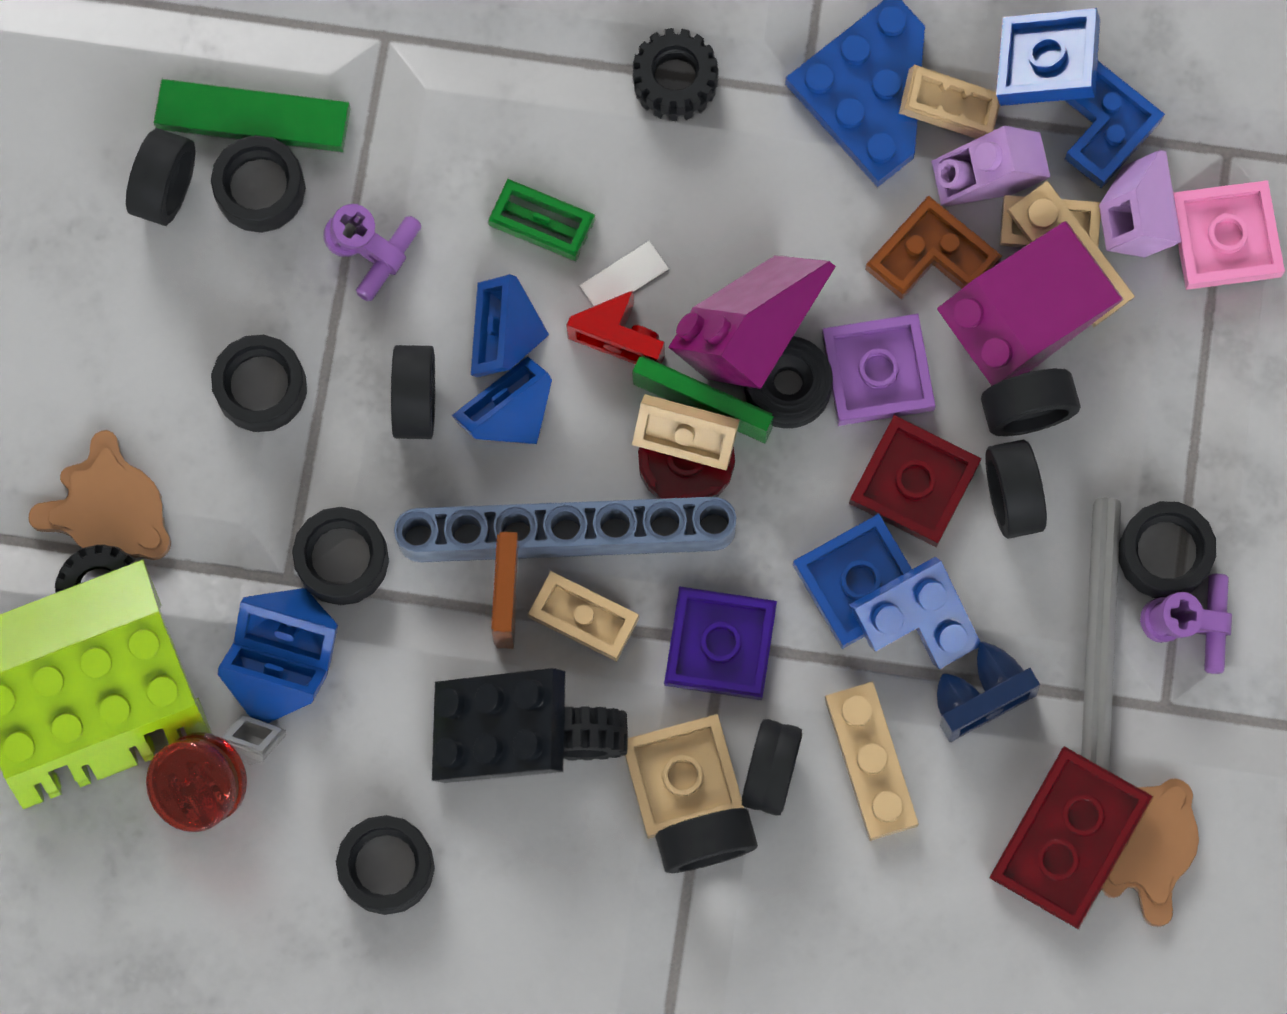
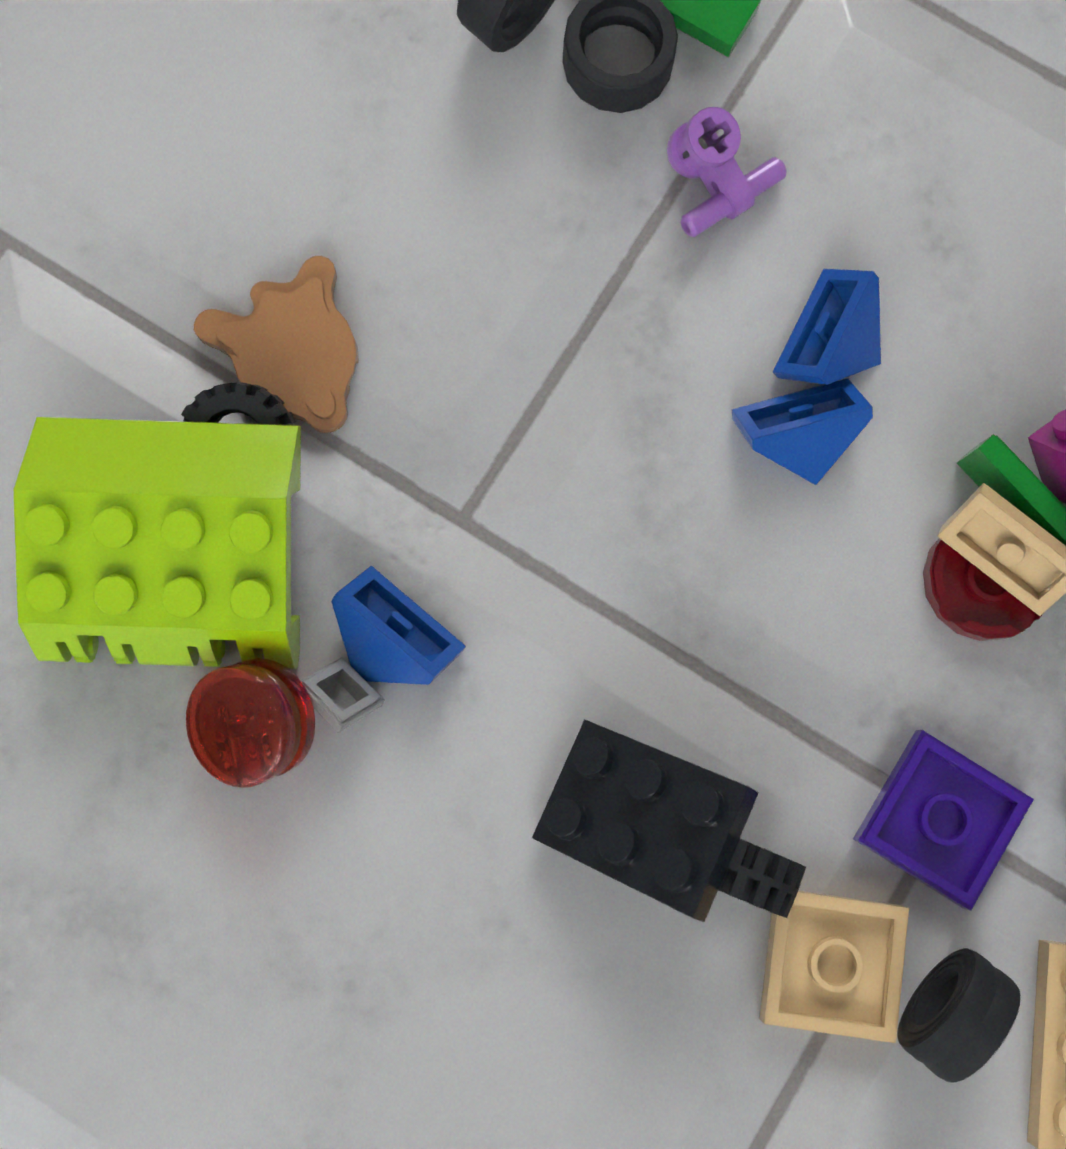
camera: 15 degrees right, 5 degrees up
(243, 350) = (534, 232): black tyre -> none
(287, 626) = (439, 577): blue slope -> none
(334, 519) = (527, 473): black tyre -> none
(348, 855) = (419, 970): black tyre -> none
(413, 392) = (704, 362): black tyre -> none
(505, 590) = (714, 666): dark orange tile -> none
(537, 237) = (919, 234): green tile -> none
(583, 616) = (795, 718): tan plate -> none
(588, 541) = (848, 603): sand blue beam -> none
(605, 330) = (955, 389): red slope -> none
(625, 274) = (995, 334): white sticker -> none
(706, 840) = (841, 1075): black tyre -> none

